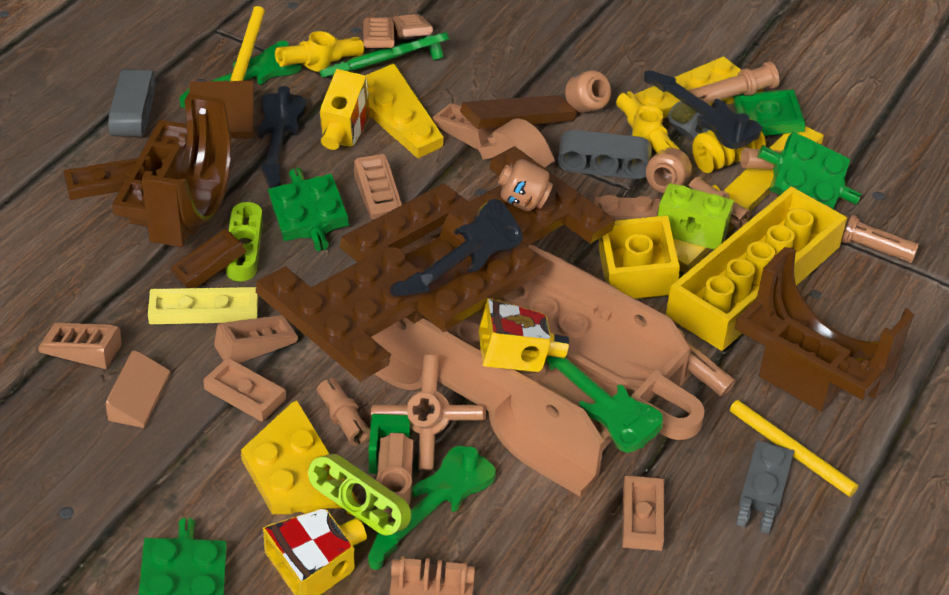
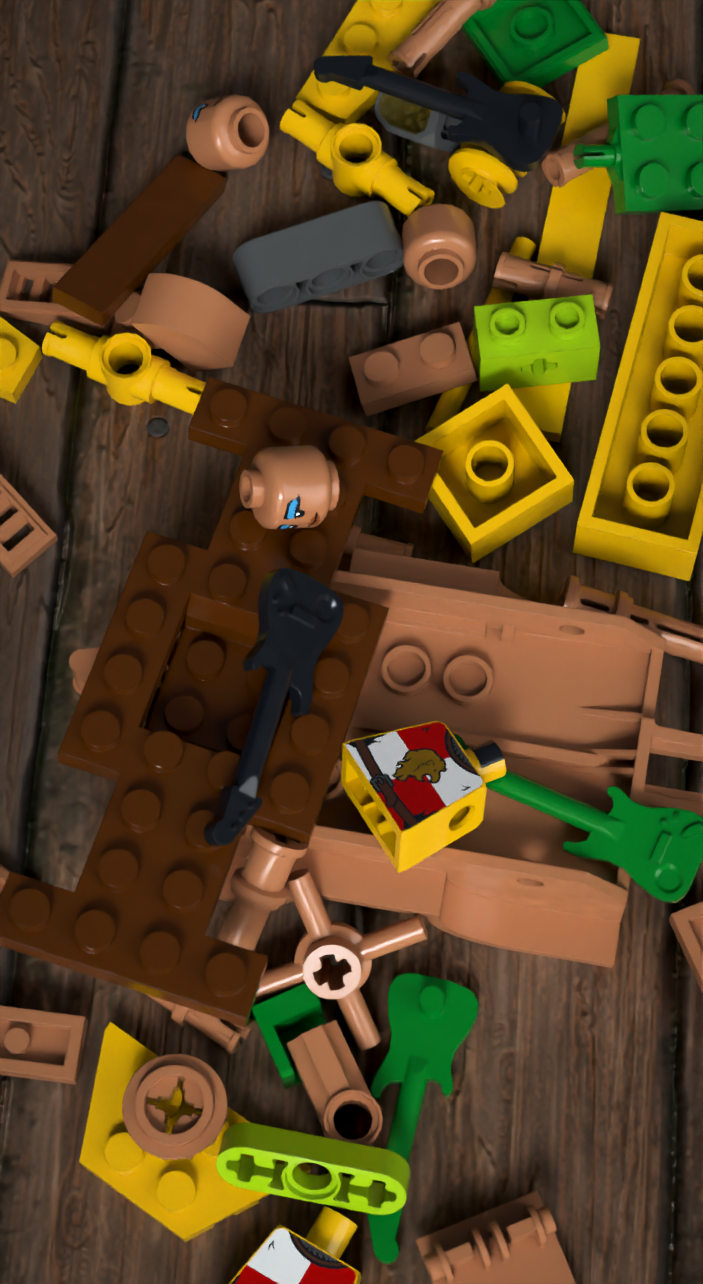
camera: 20 degrees left, 25 degrees up
(304, 427) = (159, 1081): none -> nougat gear
(406, 350) = (259, 886): none -> nougat pin
(474, 152) = (107, 354): none -> yellow pin

